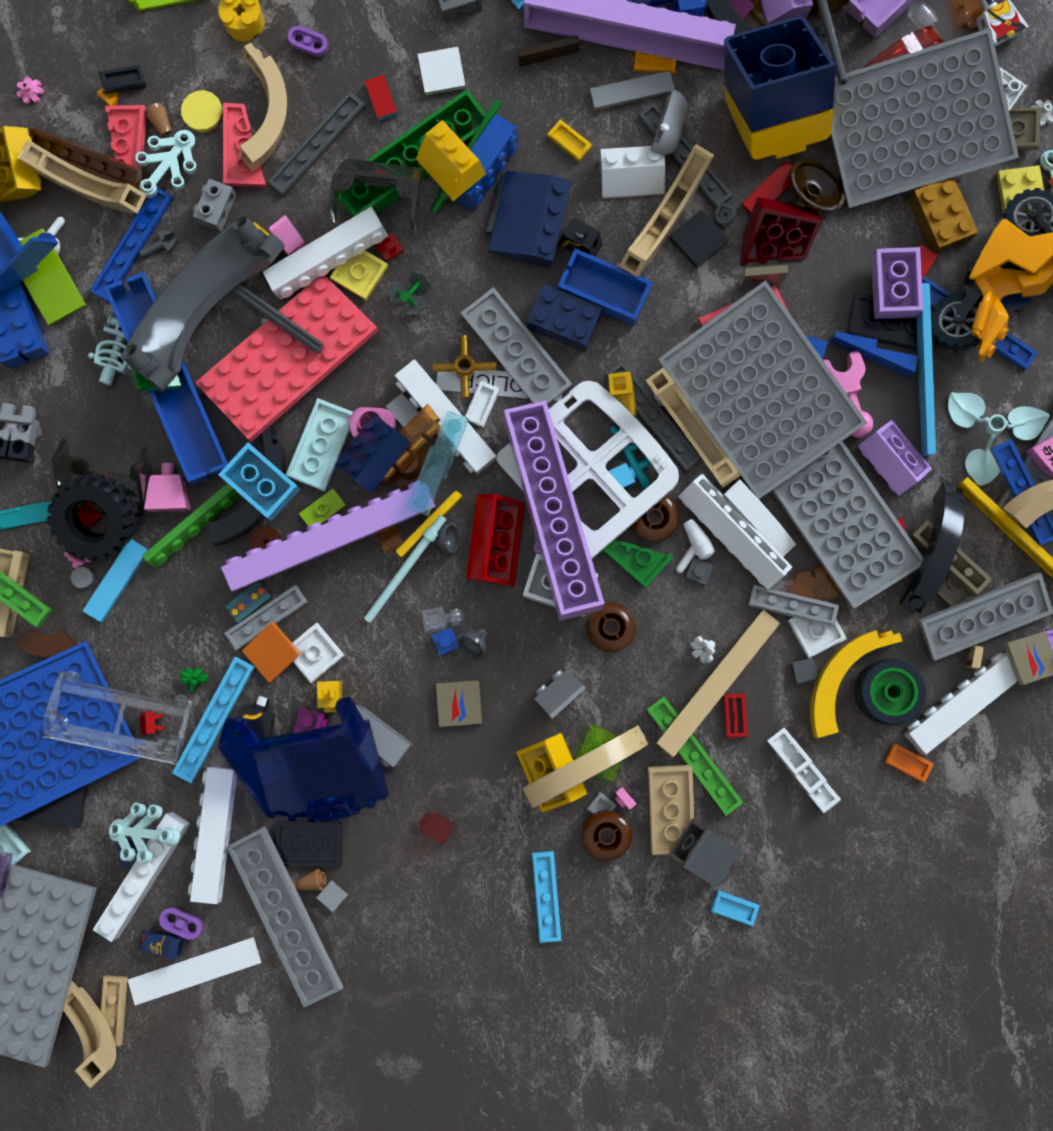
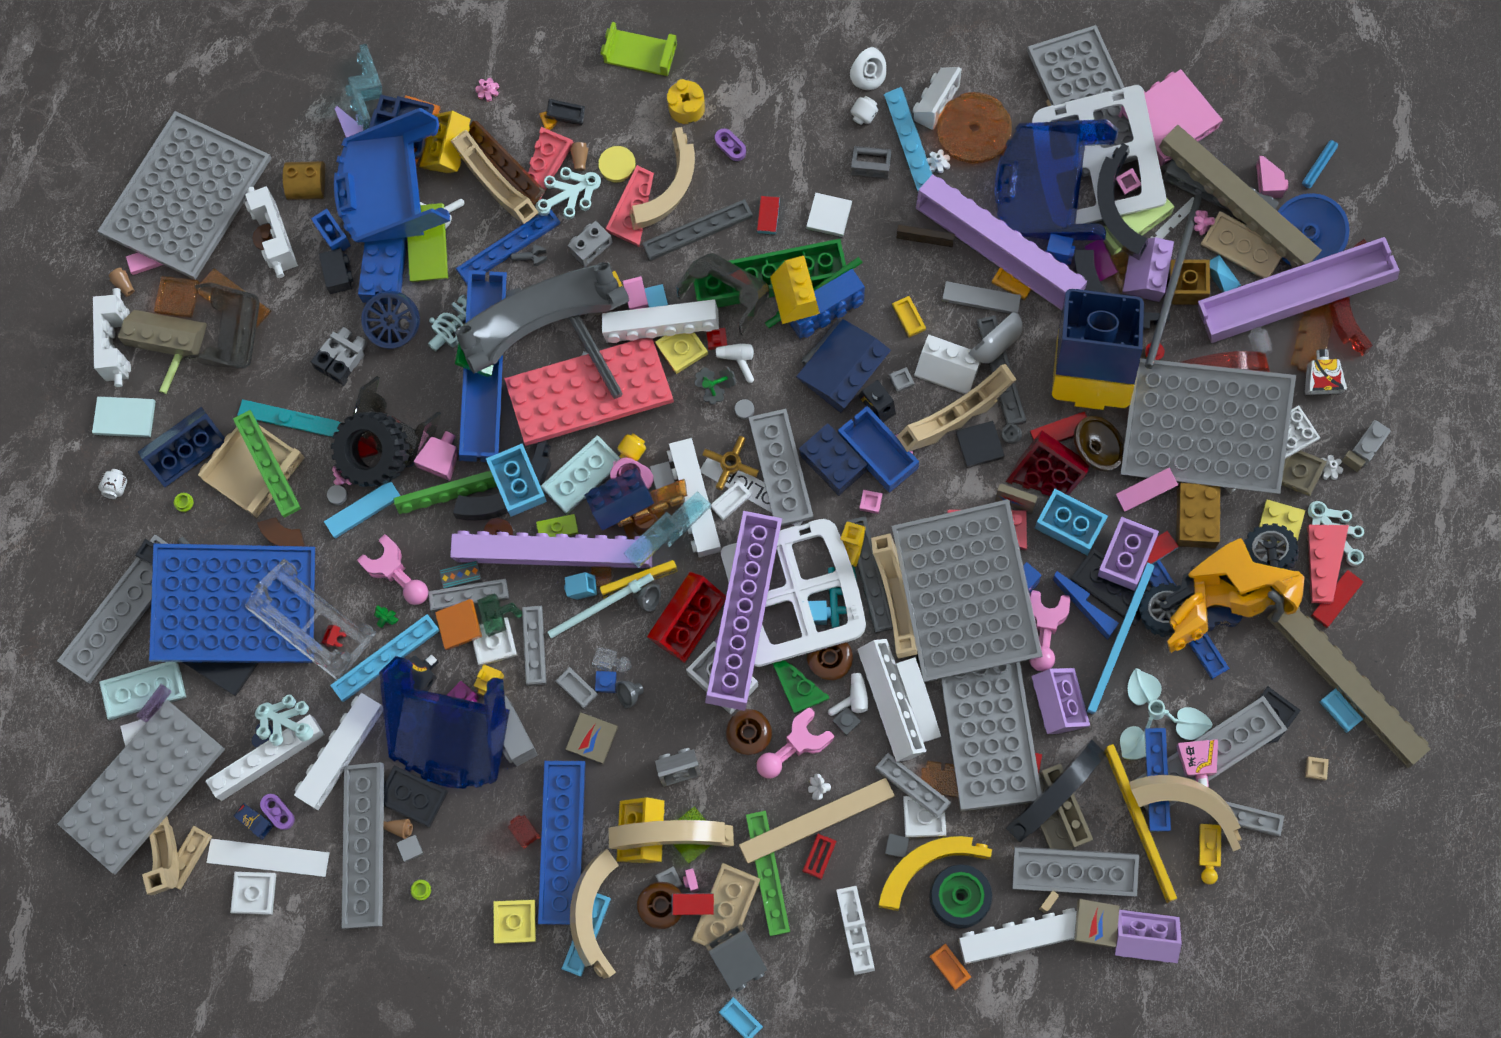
camera: 30 degrees right, 10 degrees down
(72, 364) = (414, 319): none -> dark blue piece
(174, 626) = (390, 567): none -> bright pink piece
(197, 1013) = (253, 893): none -> white tile
(301, 626) = (493, 613): none -> clear green plate
(309, 229) = (656, 296): none -> medium azure brick
(357, 638) = (534, 645): none -> light grey tile
(358, 395) = (631, 447): none -> yellow head
(363, 931) = (420, 890): none -> lime plate
(375, 558) = (580, 586): none -> medium azure brick
(419, 660) = (576, 688): none -> light grey tile
(420, 251) = (740, 353): none -> white piece
(451, 306) = (744, 409): none -> light grey tile
(471, 919) = (514, 921): none -> light yellow plate
(480, 820) = (561, 839): none -> blue plate
(533, 879) = (581, 913): none -> tan arch
(592, 208) = (901, 380): none -> light grey tile
(620, 343) = (871, 501): none -> bright pink plate
(639, 822) = (693, 904): none -> red tile
(664, 612) = (799, 742): none -> bright pink piece
(825, 276) = (1071, 522): none -> medium azure brick
(883, 211) = (1147, 489): none -> bright pink tile

